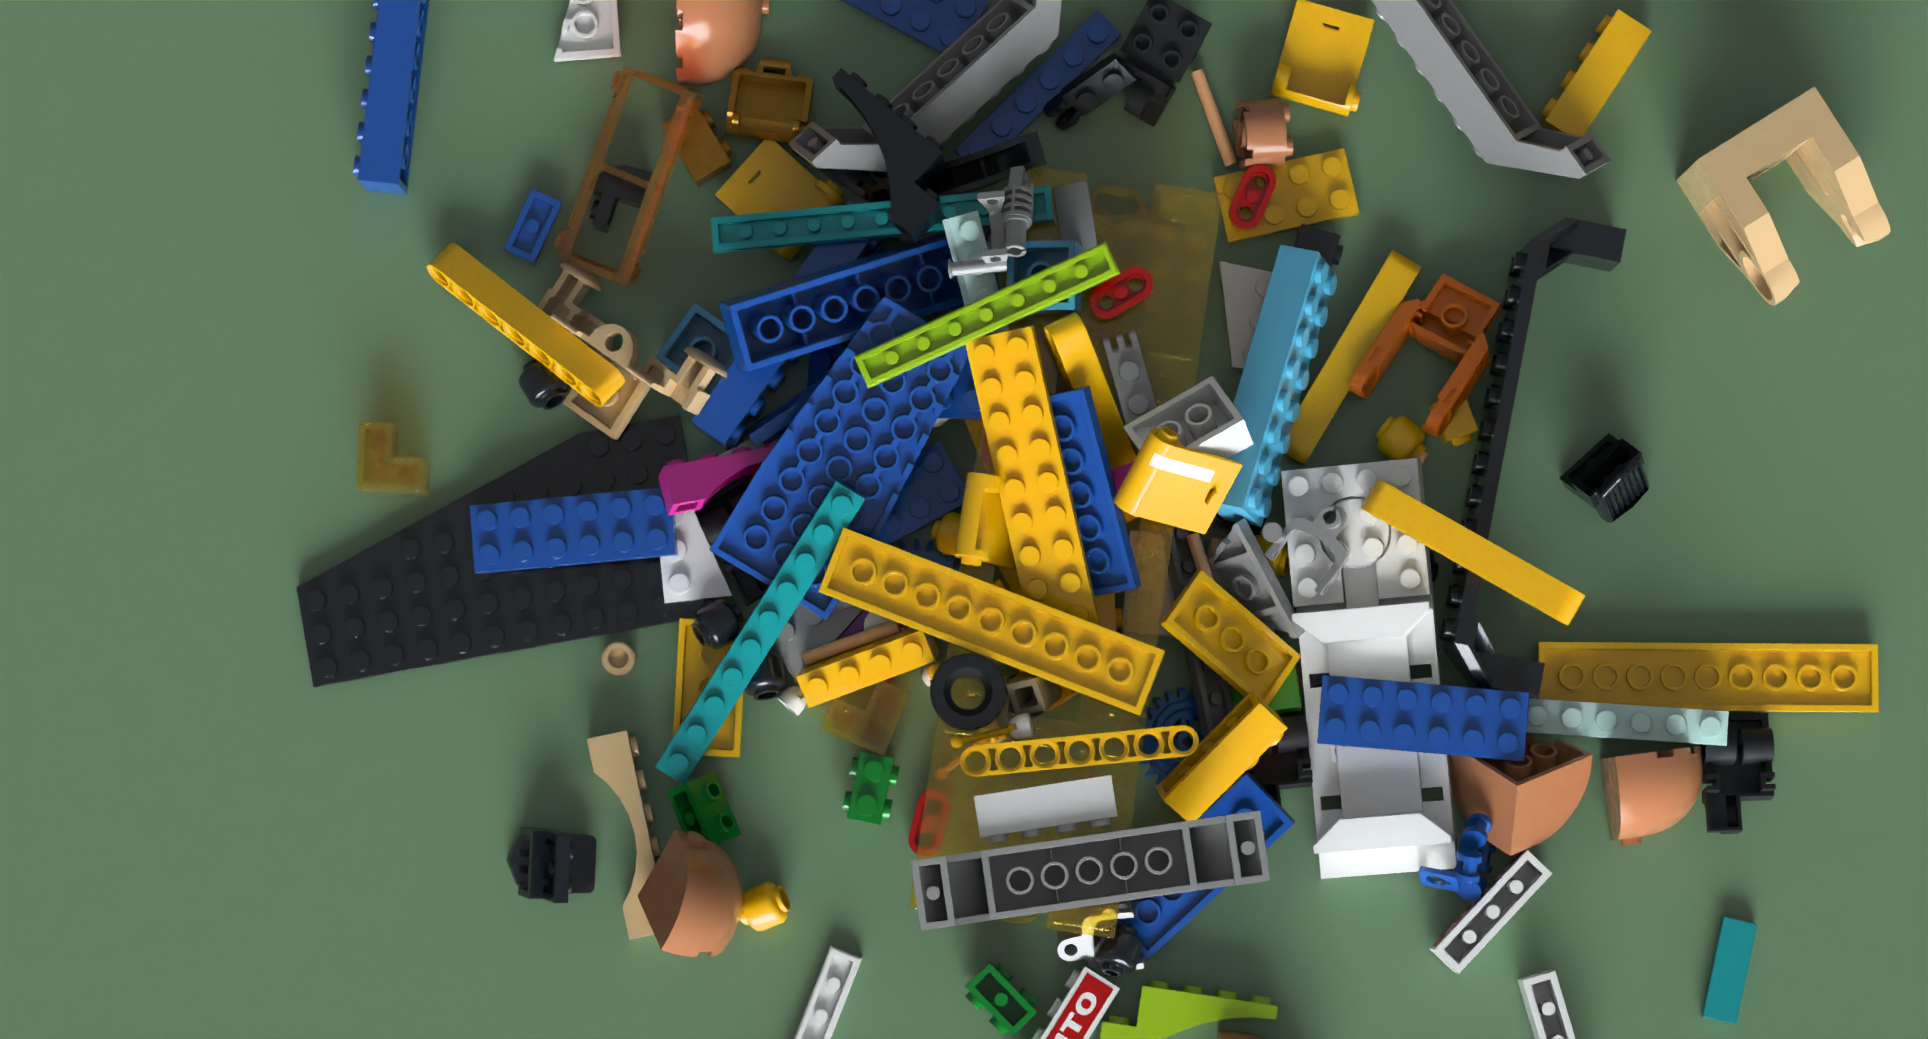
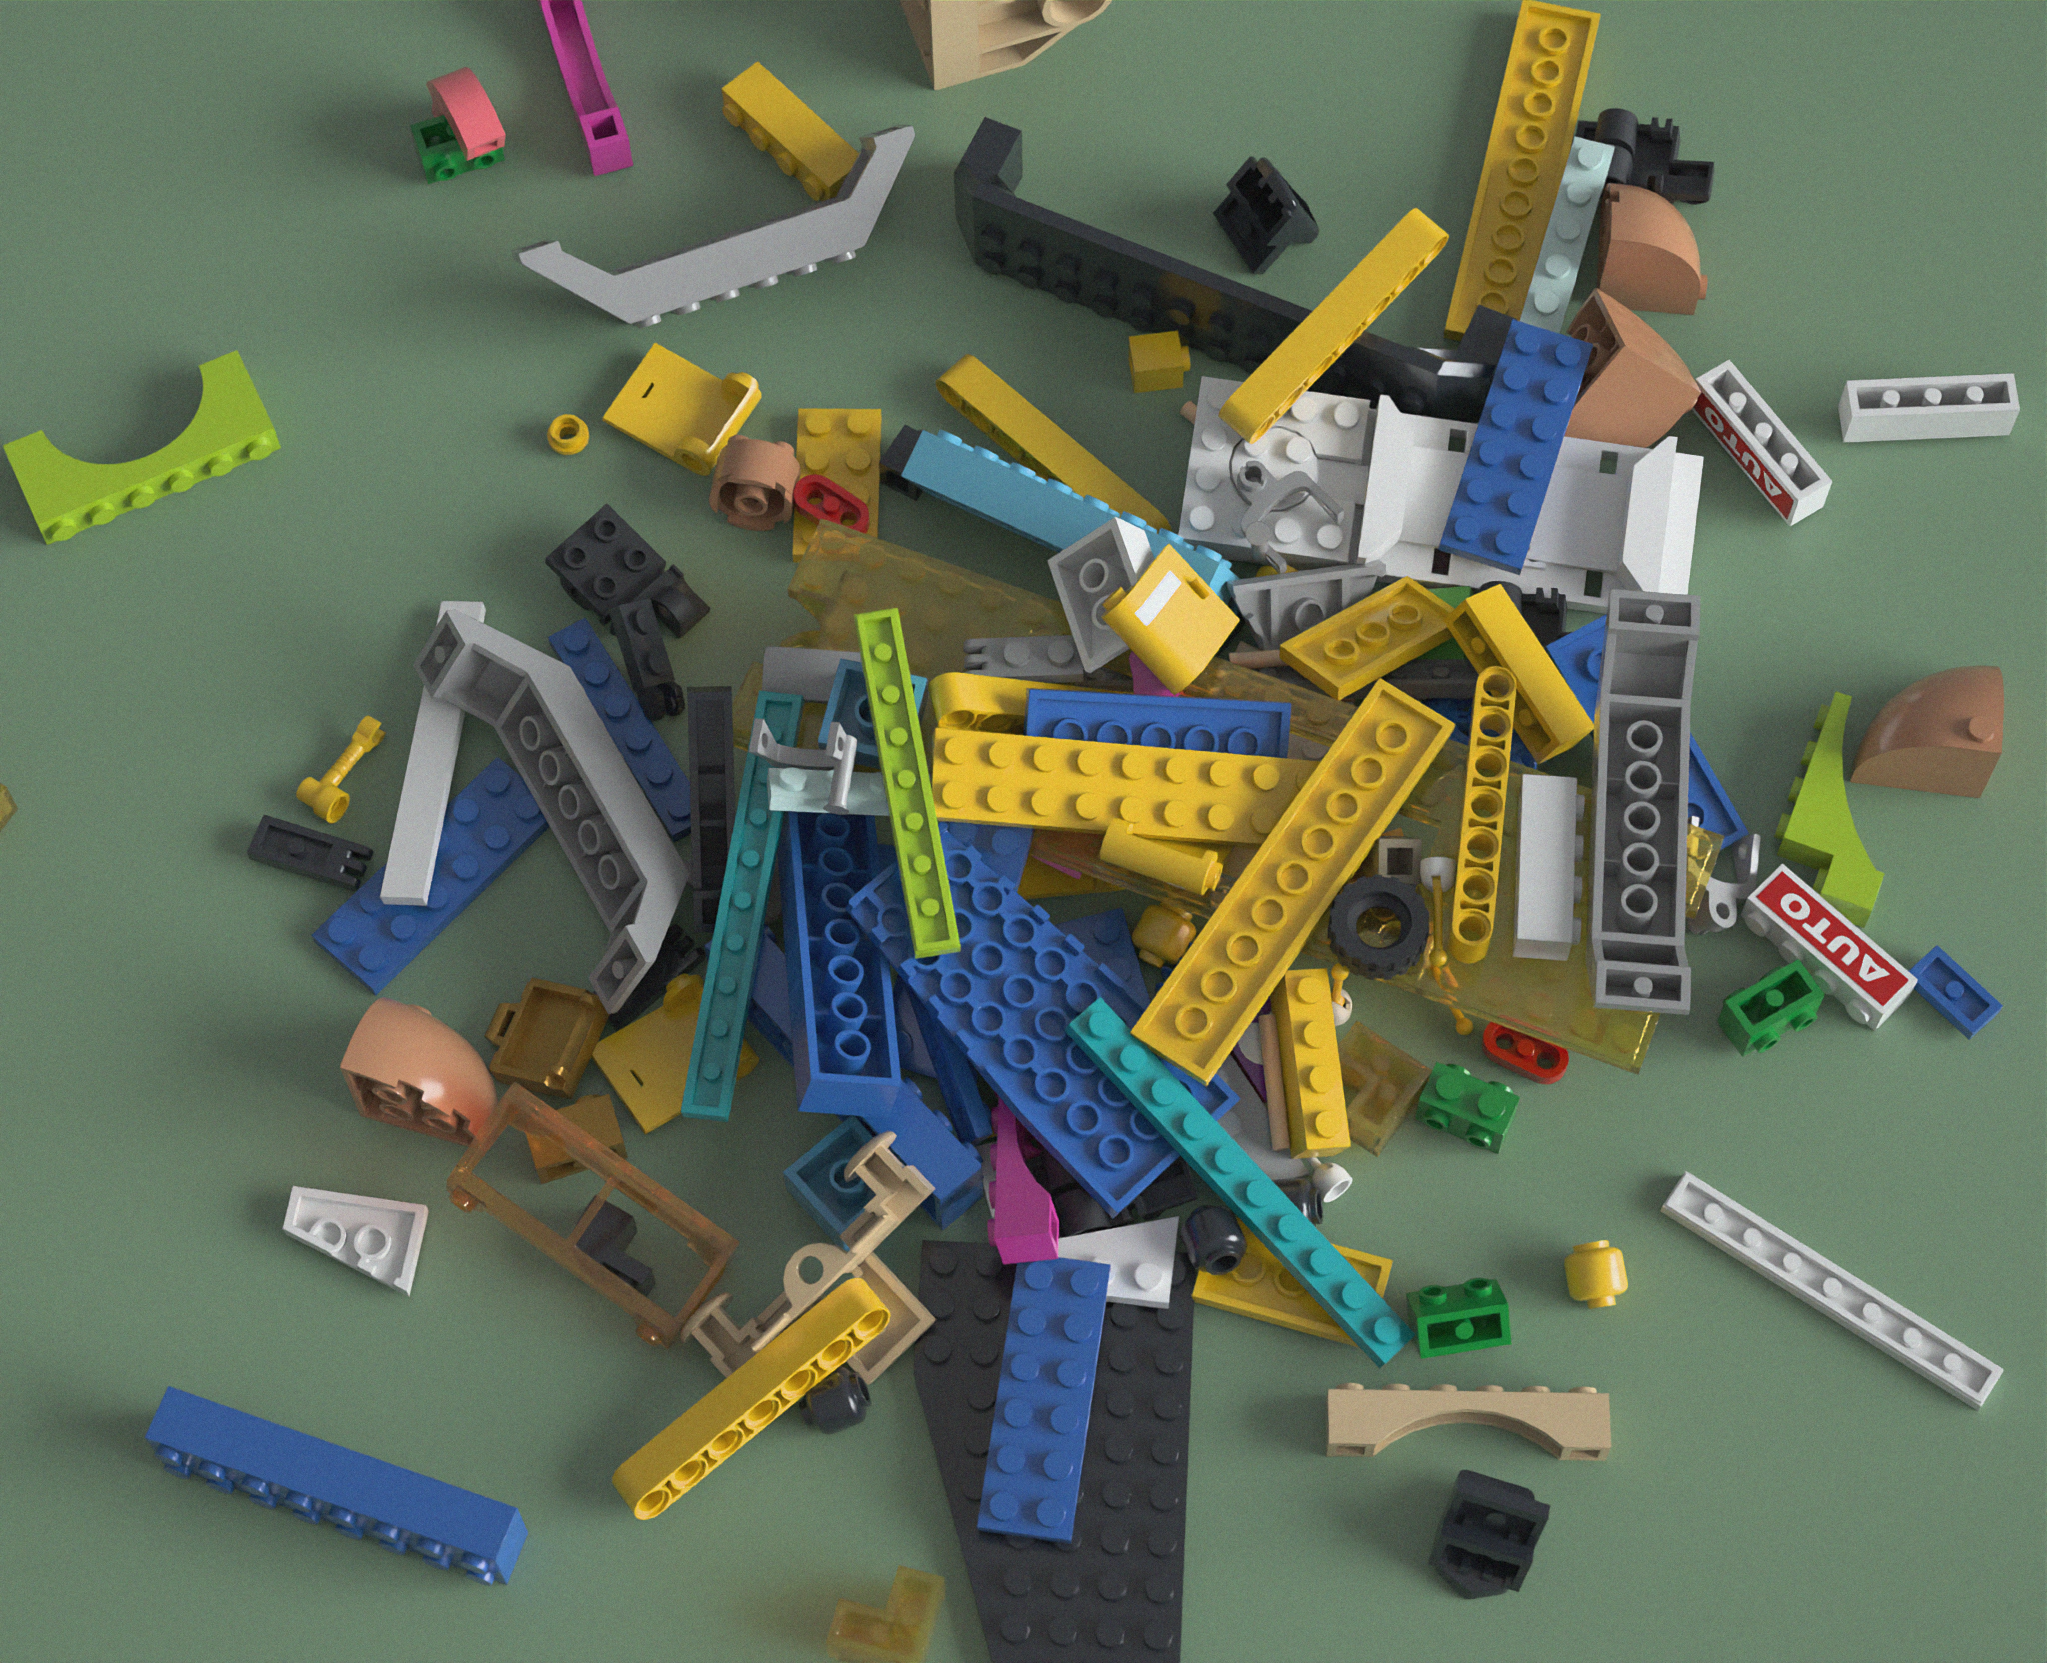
camera: 75 degrees left, 20 degrees down
(533, 226) = (620, 1369): blue plate -> none
(618, 658) = (1225, 1391): tan tile -> none
(693, 896) = (1572, 1337): nougat brick -> none
(907, 155) = (662, 851): black arch -> none
(1017, 211) = (785, 720): light grey hinge -> none
(1120, 293) = (922, 645): red plate -> none
(1120, 953) = (1741, 853): black head -> none
(1214, 118) = (719, 541): light nougat bar -> none
(1243, 299) = (979, 548): white wing -> none
(1400, 439) = (1167, 418): yellow head -> none
(1447, 322) = (1047, 331): orange plate -> none
(1466, 878) = (1718, 451): blue piece -> none
(1729, 970) = (1871, 225): teal tile -> none

